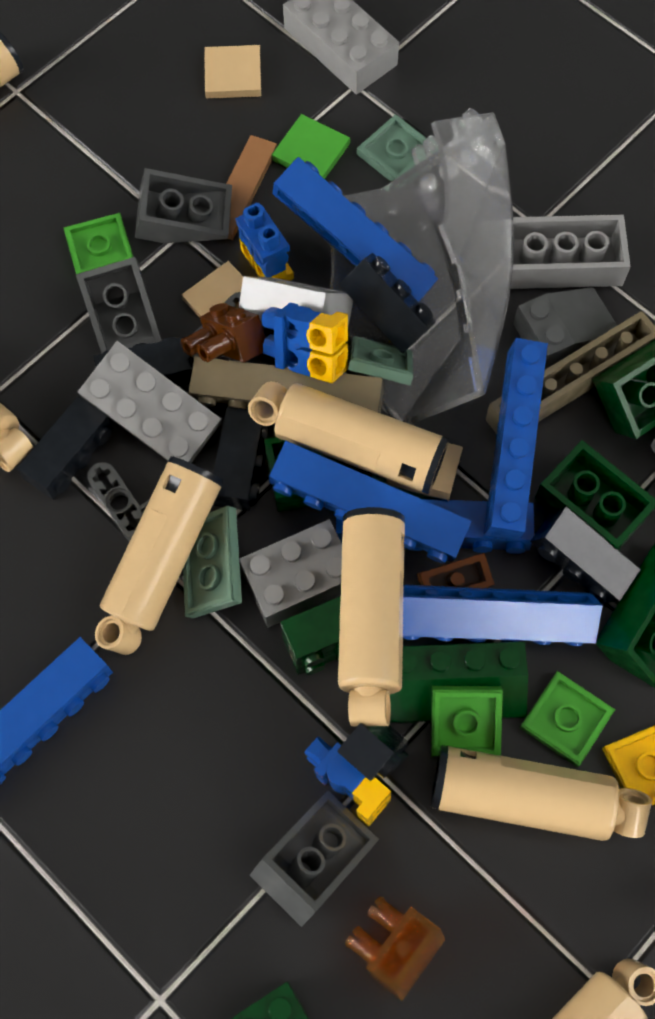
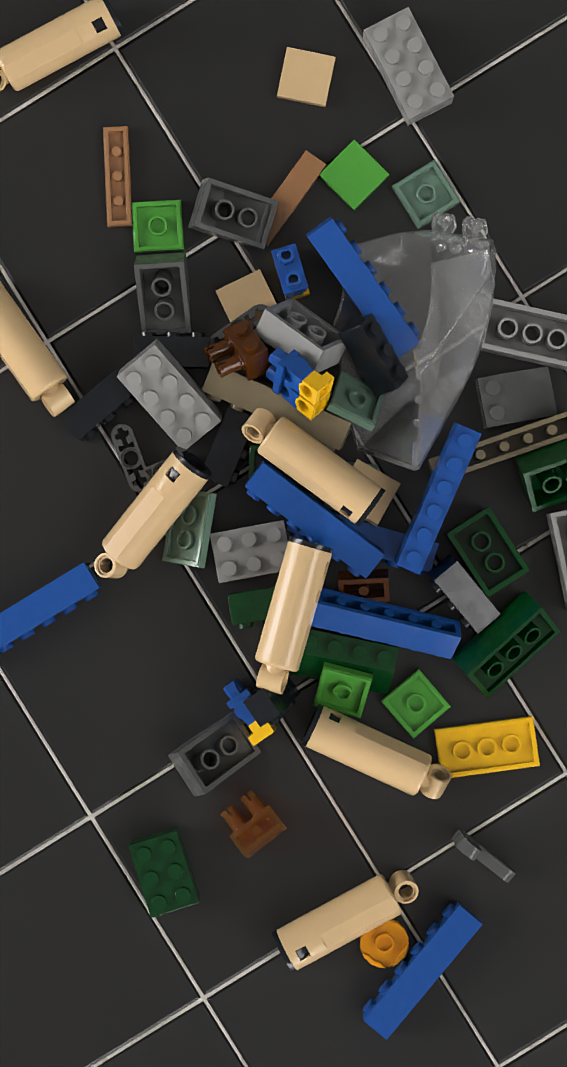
camera: 15 degrees right, 20 degrees up
(43, 209) = (117, 176): none -> medium nougat tile

